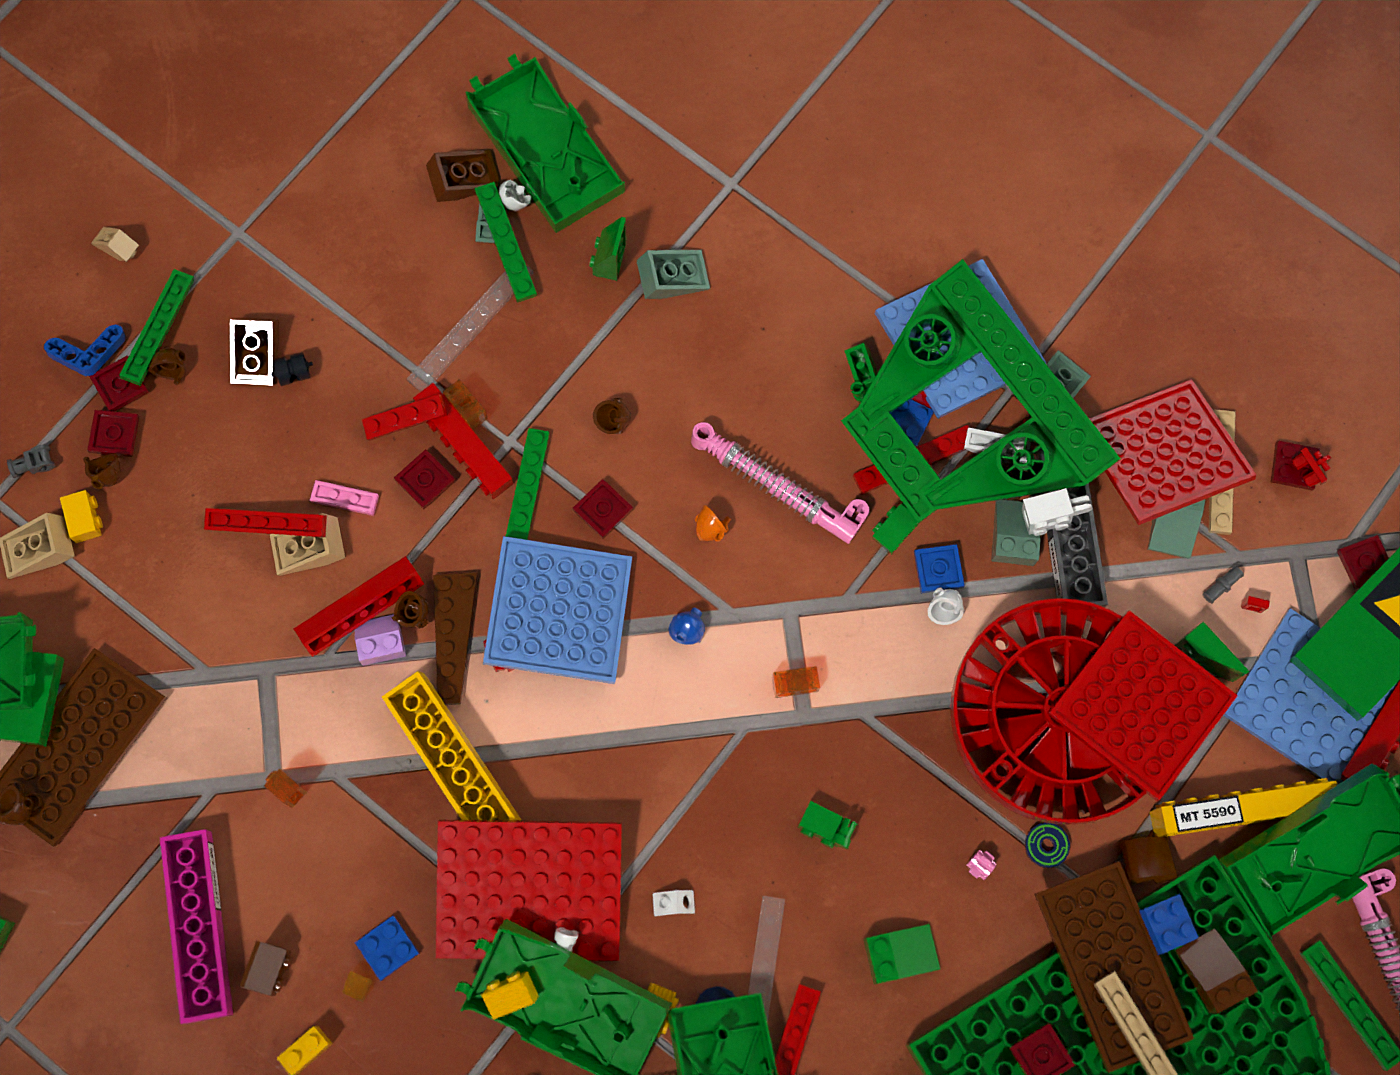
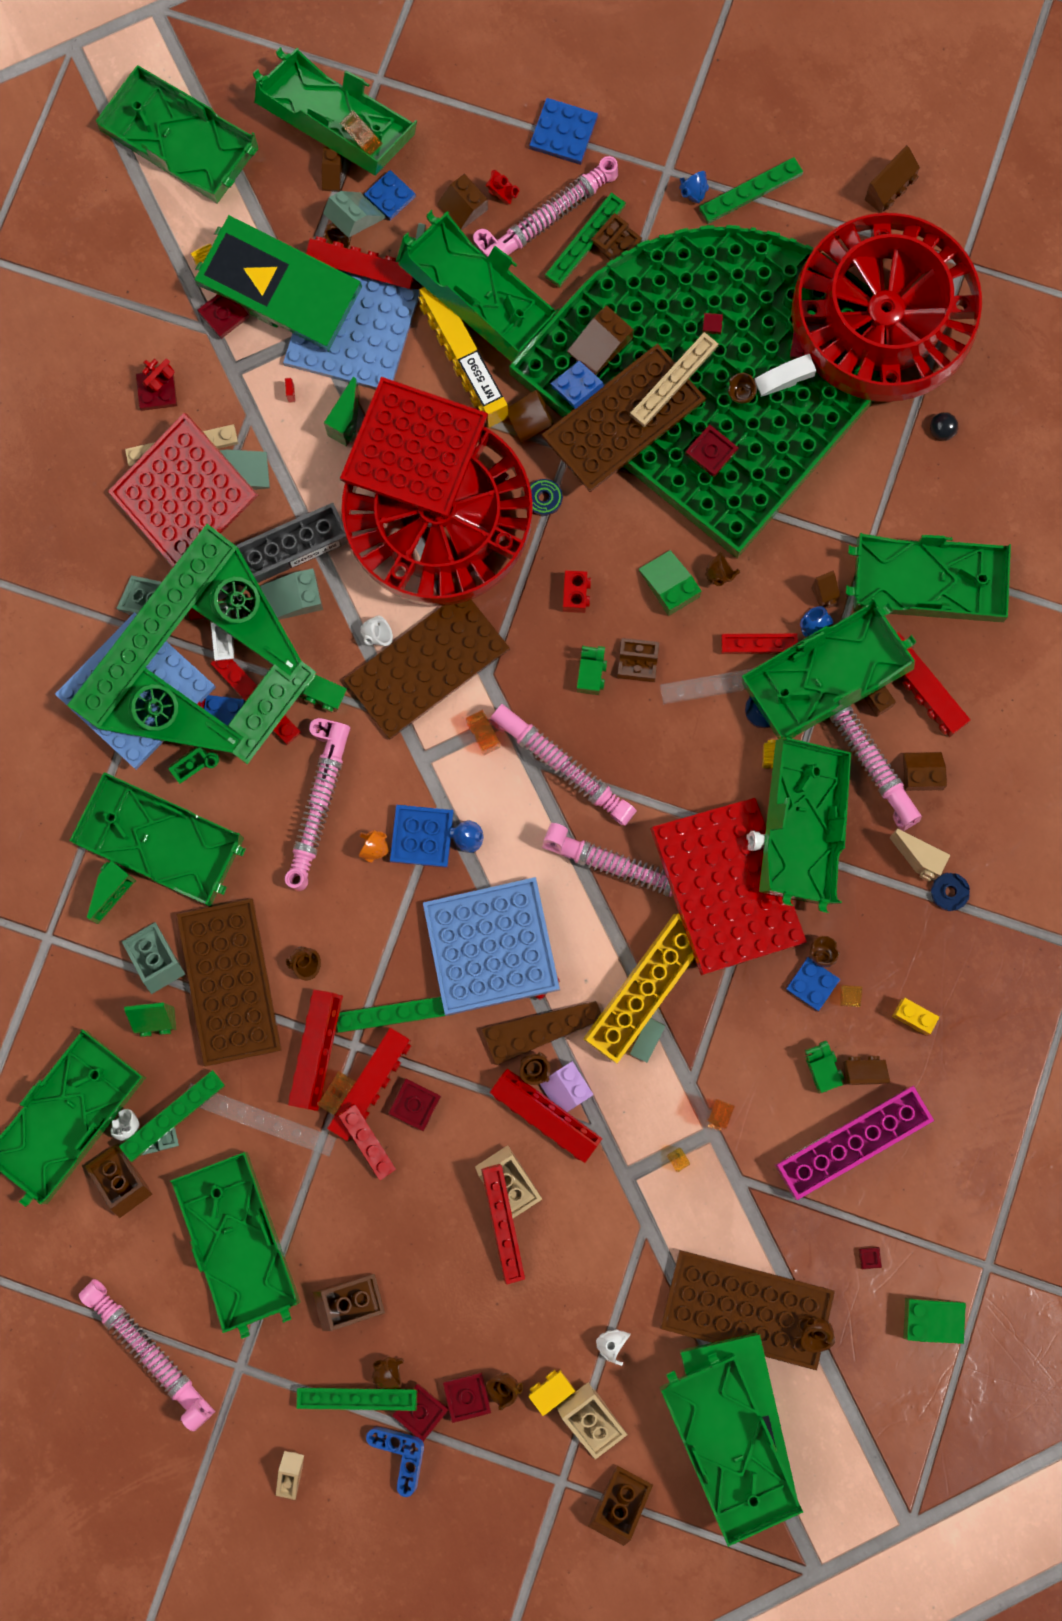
camera: 100 degrees left, 5 degrees up
(34, 460) = (517, 1459): dark grey connector -> none
(71, 899) = (870, 1258): none -> dark red tile
(100, 590) = (611, 1343): none -> white helmet
(242, 169) = (178, 1385): none -> bright pink piece
(258, 730) = (678, 1159): none -> clear yellow slope
(289, 369) = (353, 1258): black wheel -> none
(289, 923) = (823, 1067): none -> green hinge
(344, 498) = (454, 1169): bright pink tile -> none
(356, 264) = (236, 1243): none -> green piece
(396, 742) = (647, 1040): none -> sand green slope
(416, 973) = (824, 951): none -> reddish brown hair
(510, 994) = (815, 868): yellow brick -> none
(518, 398) = (315, 1050): none -> red brick
(602, 508) = (388, 942): dark red plate -> none
(621, 338) = (229, 982): none -> reddish brown plate
(623, 744) = (583, 853): none -> bright pink piece
(672, 902) = (695, 771): white bracket -> none
(704, 580) = (421, 836): none -> blue plate
(757, 249) = (109, 889): none -> green slope
(771, 727) = (528, 736): none -> bright pink piece
(794, 314) = (157, 839): none -> green piece
(822, 885) = (638, 660): none -> reddish brown slope
(892, 649) = (426, 665): none -> reddish brown plate
(894, 1018) = (720, 571): none -> reddish brown helmet
(925, 835) = (572, 591): none -> red brick
(938, 568) = (345, 648): blue plate -> none
(981, 864) = (578, 541): bright pink gear -> none
(1052, 511) = (271, 566): white brick -> none
(1223, 584) = (281, 419): dark grey pin -> none
(1344, 1042) = (615, 237): none -> reddish brown slope

